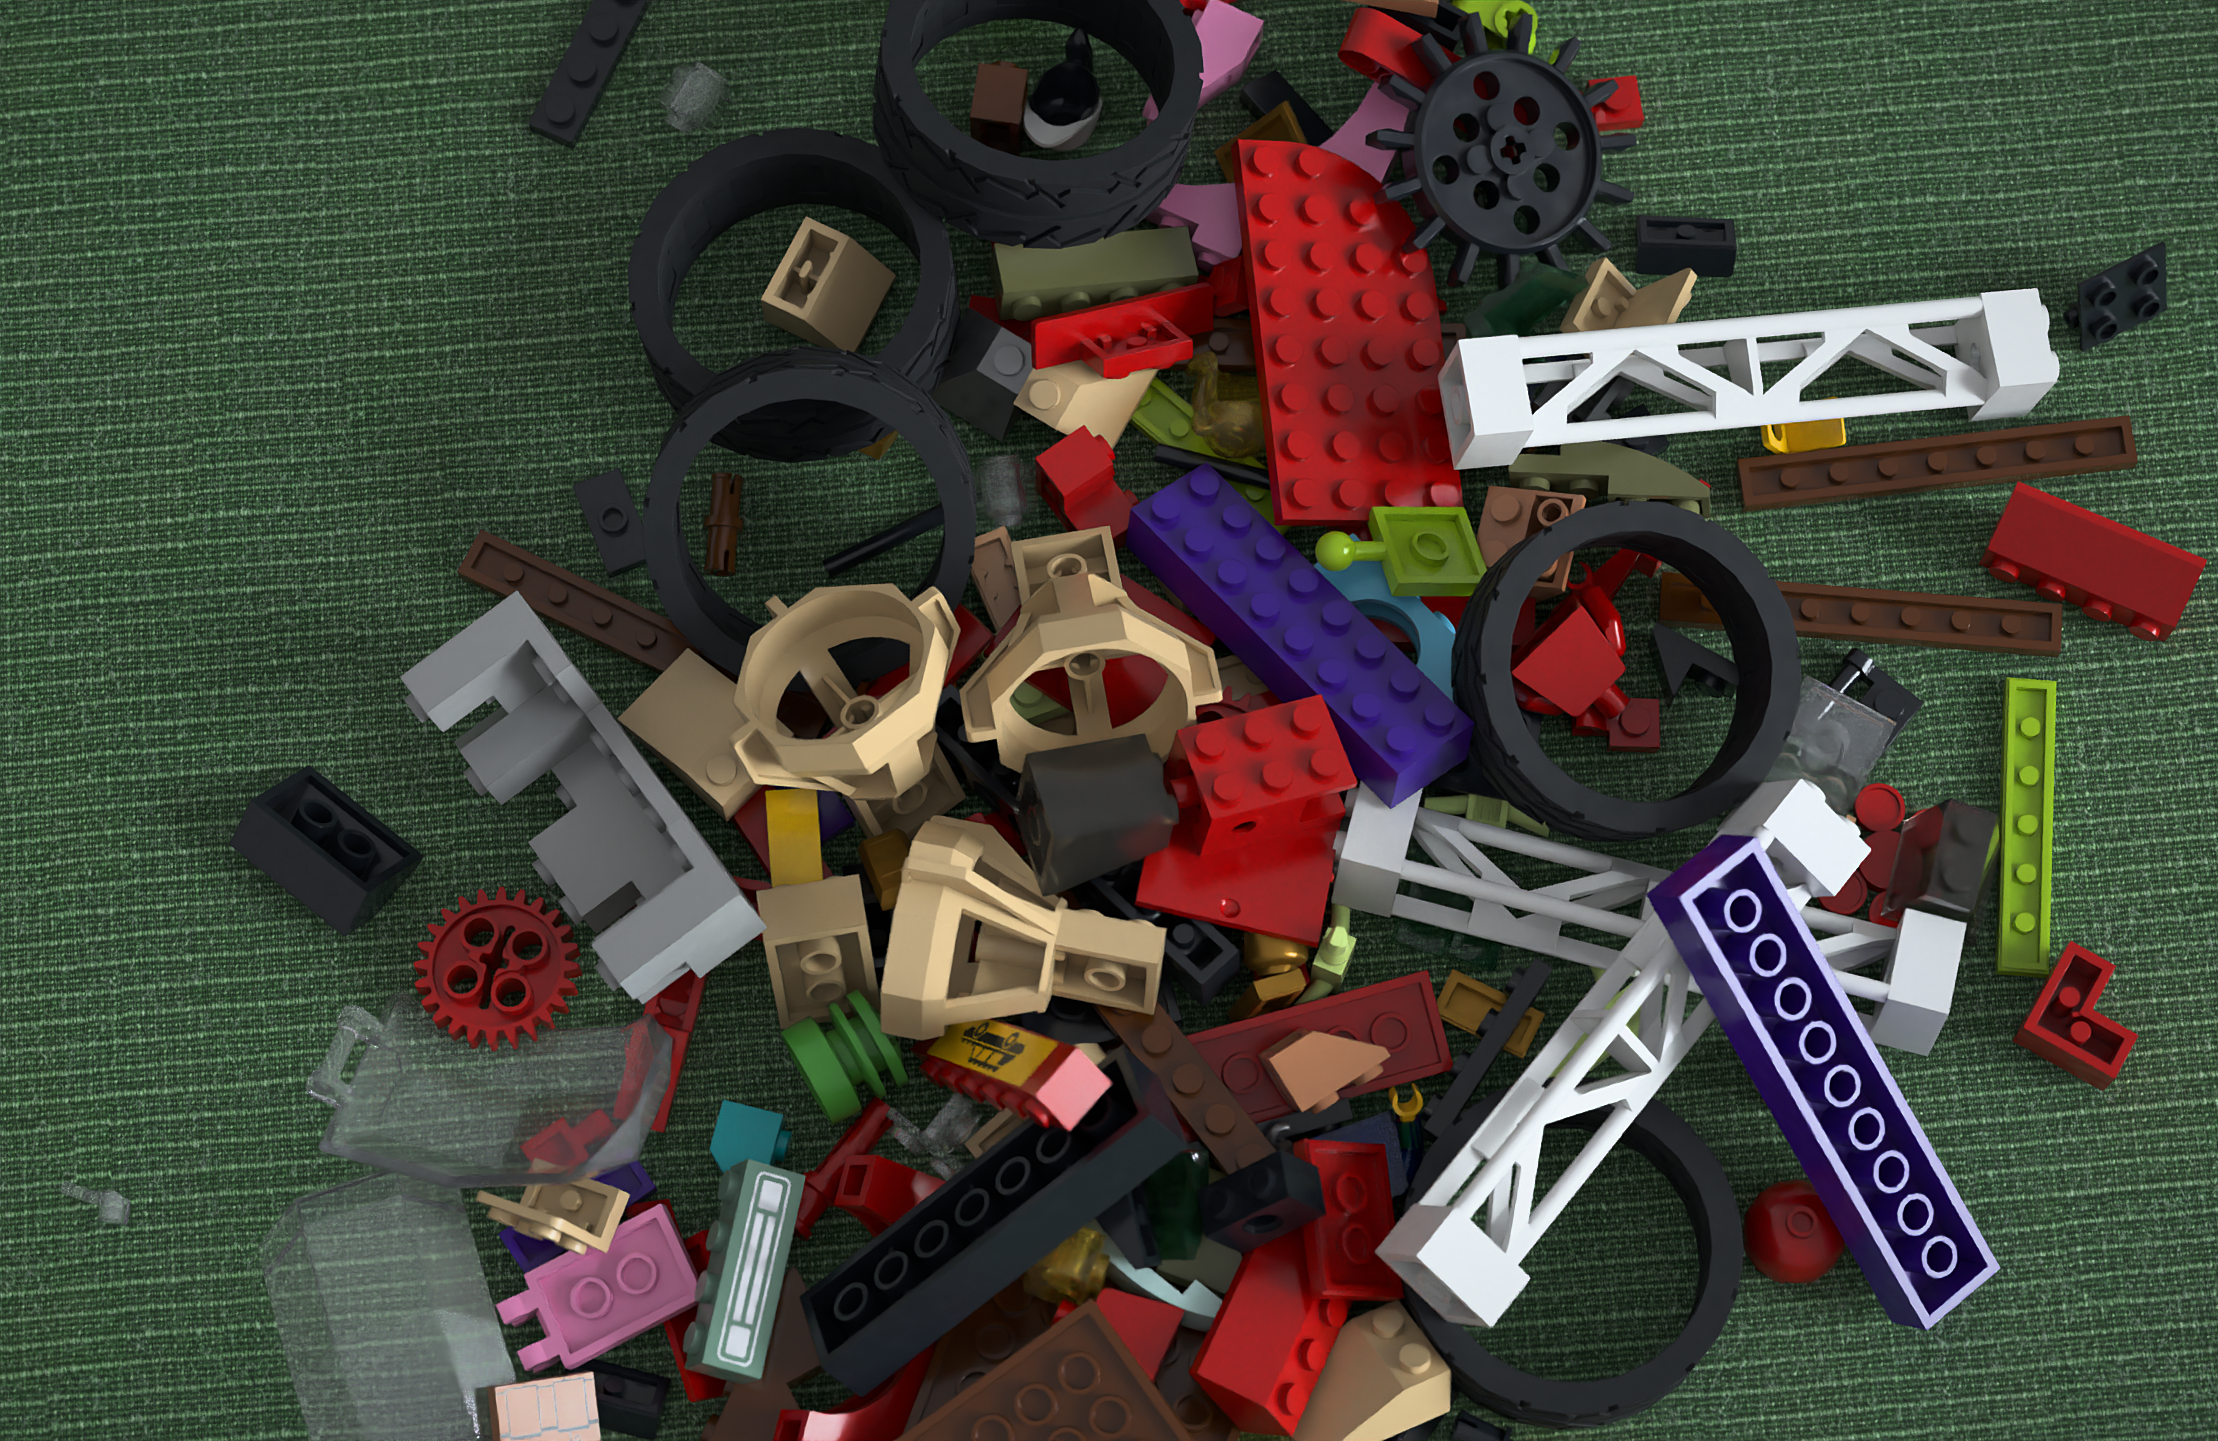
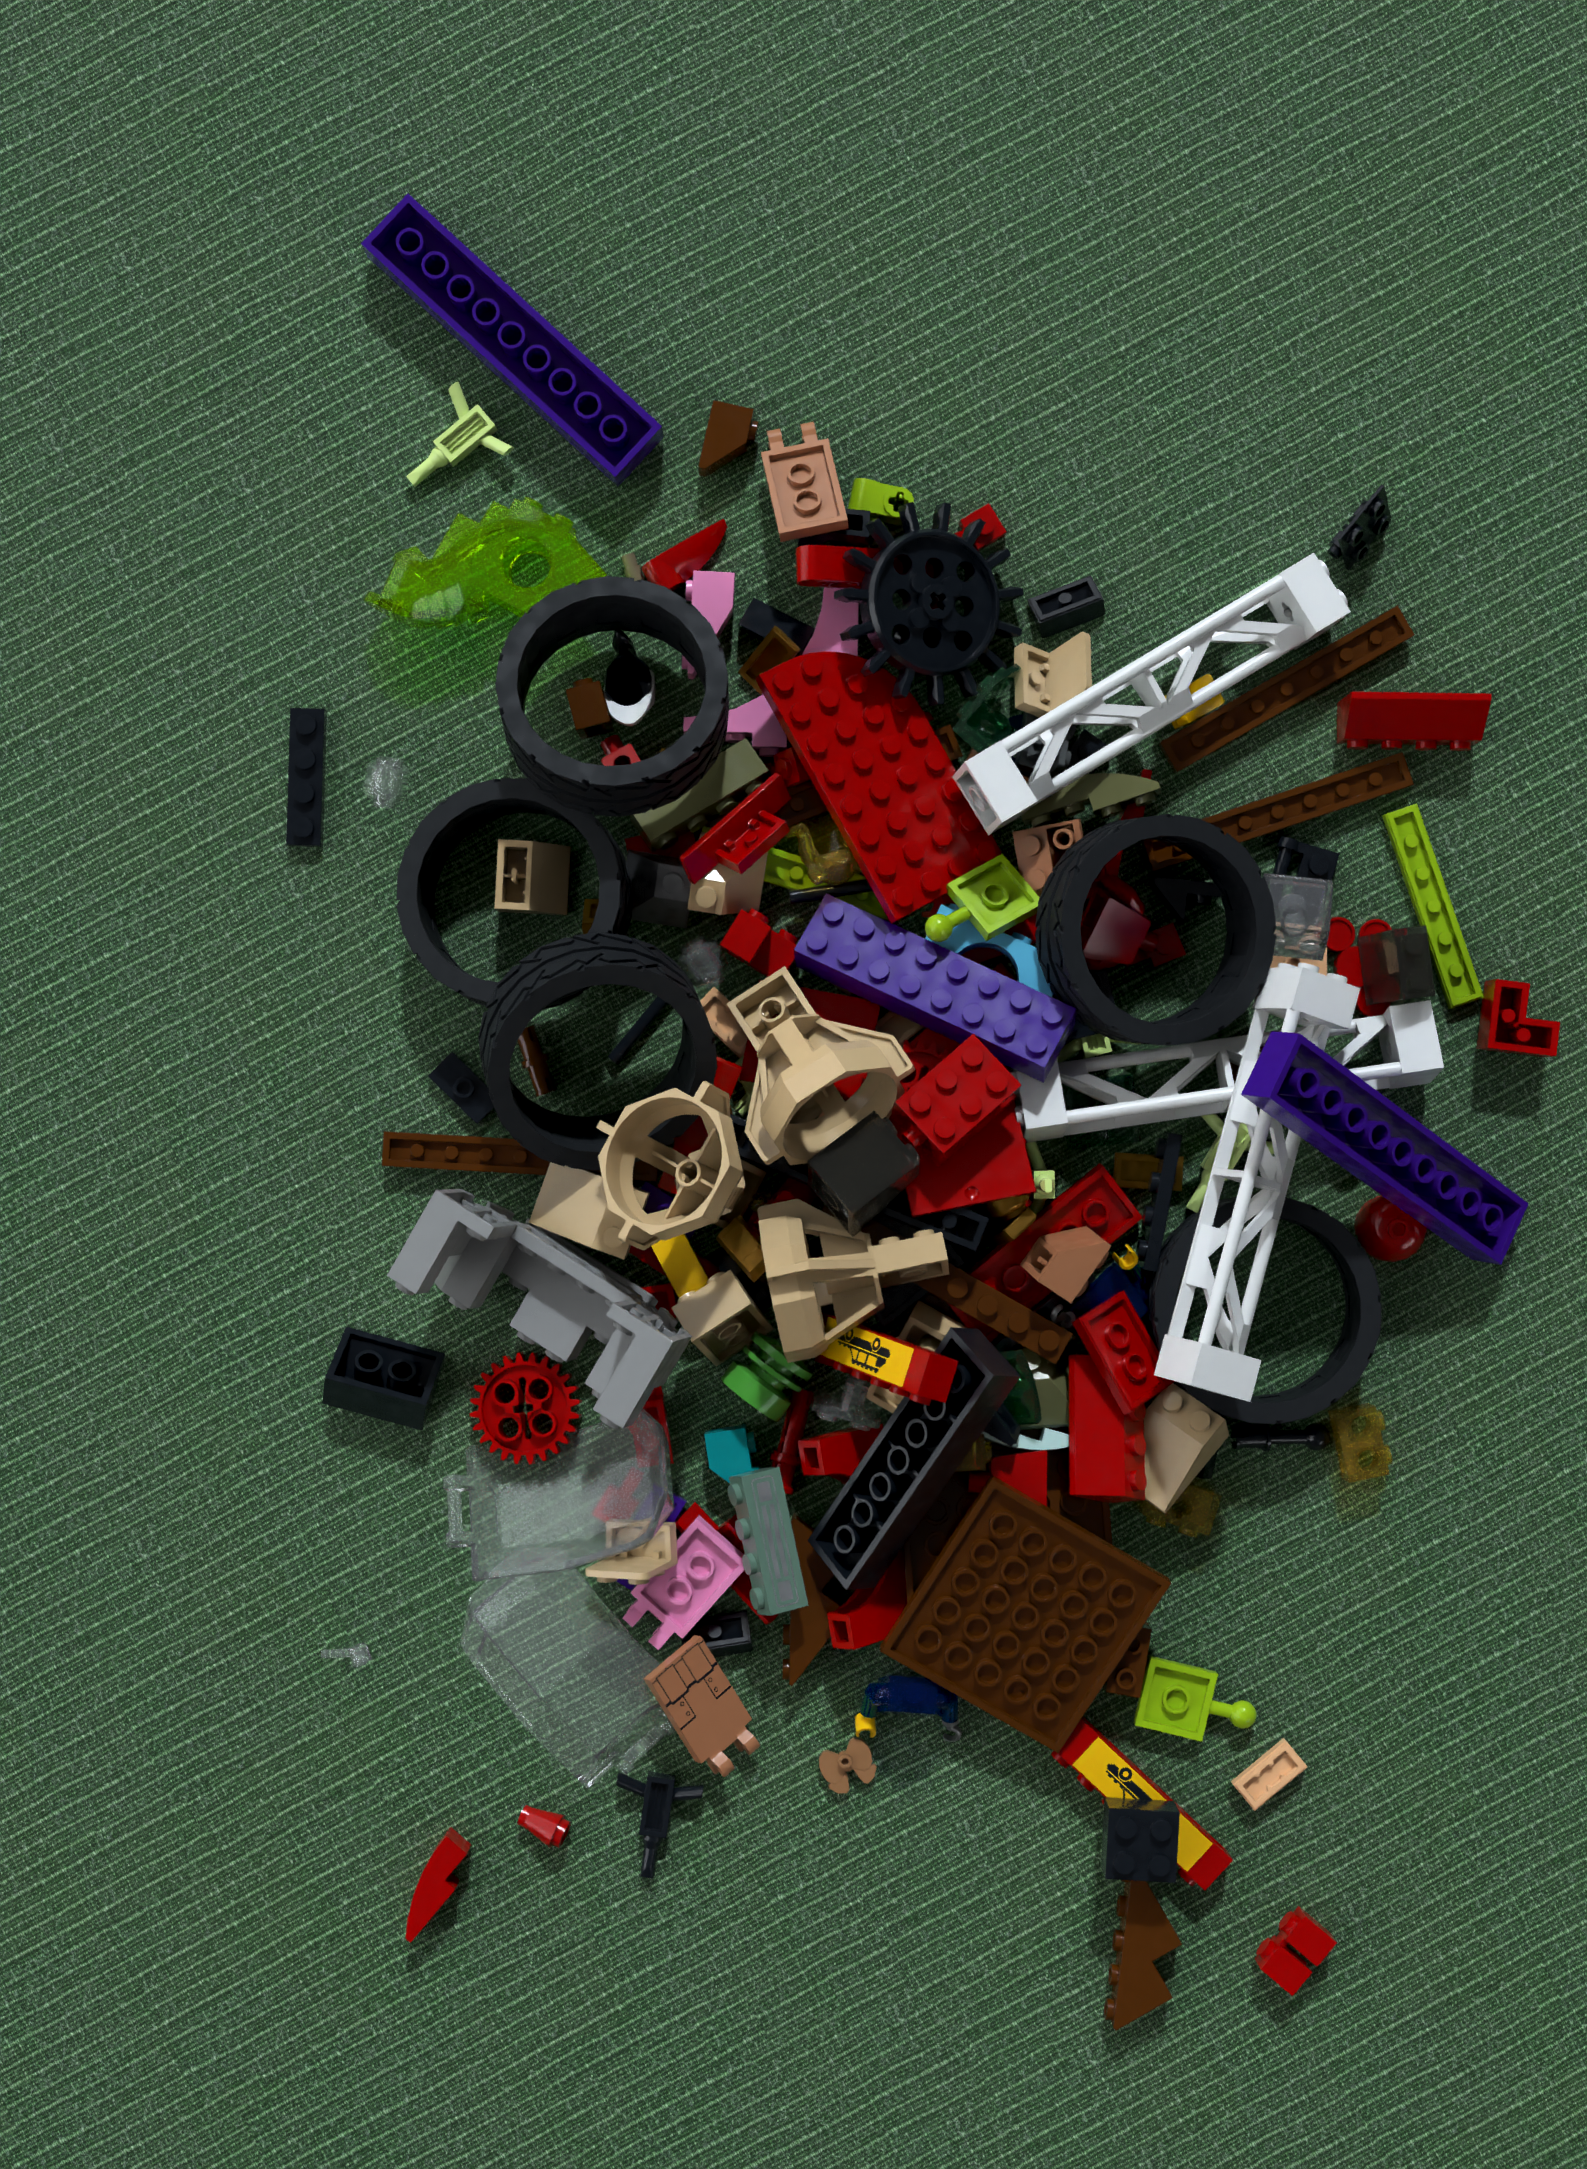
camera: 25 degrees left, 15 degrees up
(1261, 1202) = (1070, 1371): black brick -> none

